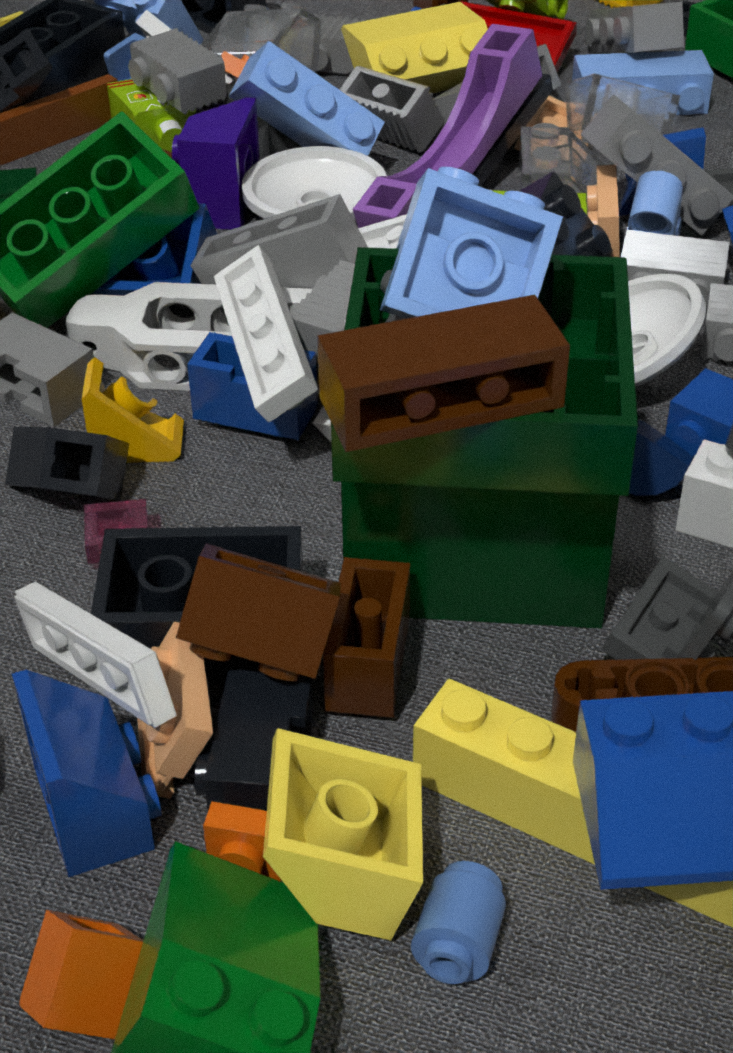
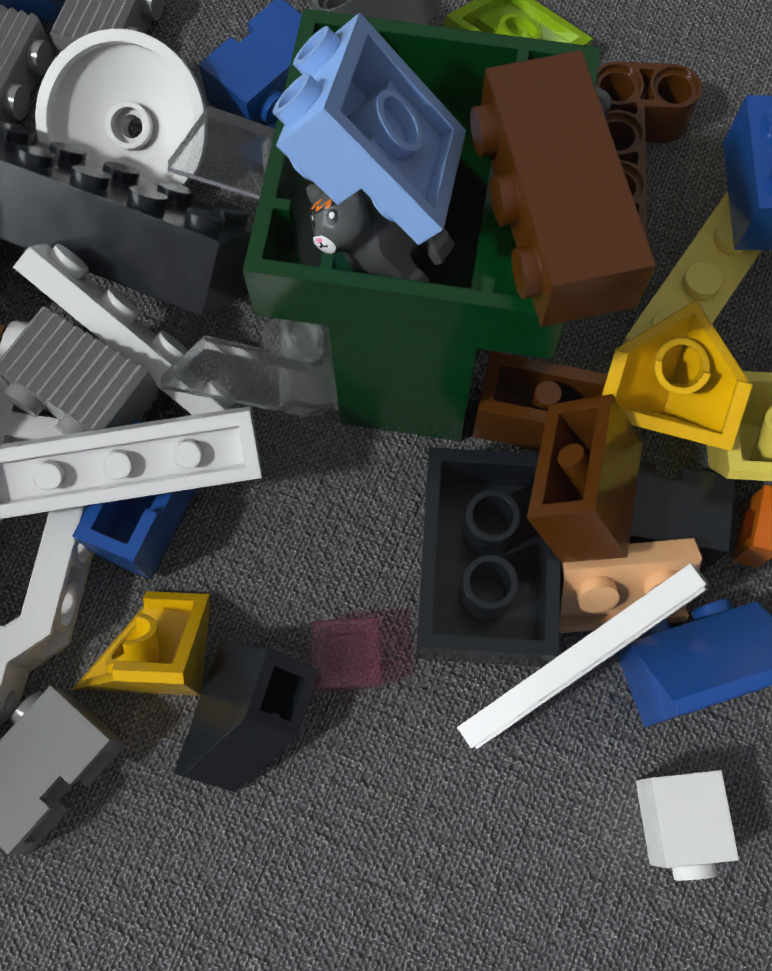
camera: 85 degrees left, 30 degrees up
(379, 677) = (681, 380): none -> yellow slope

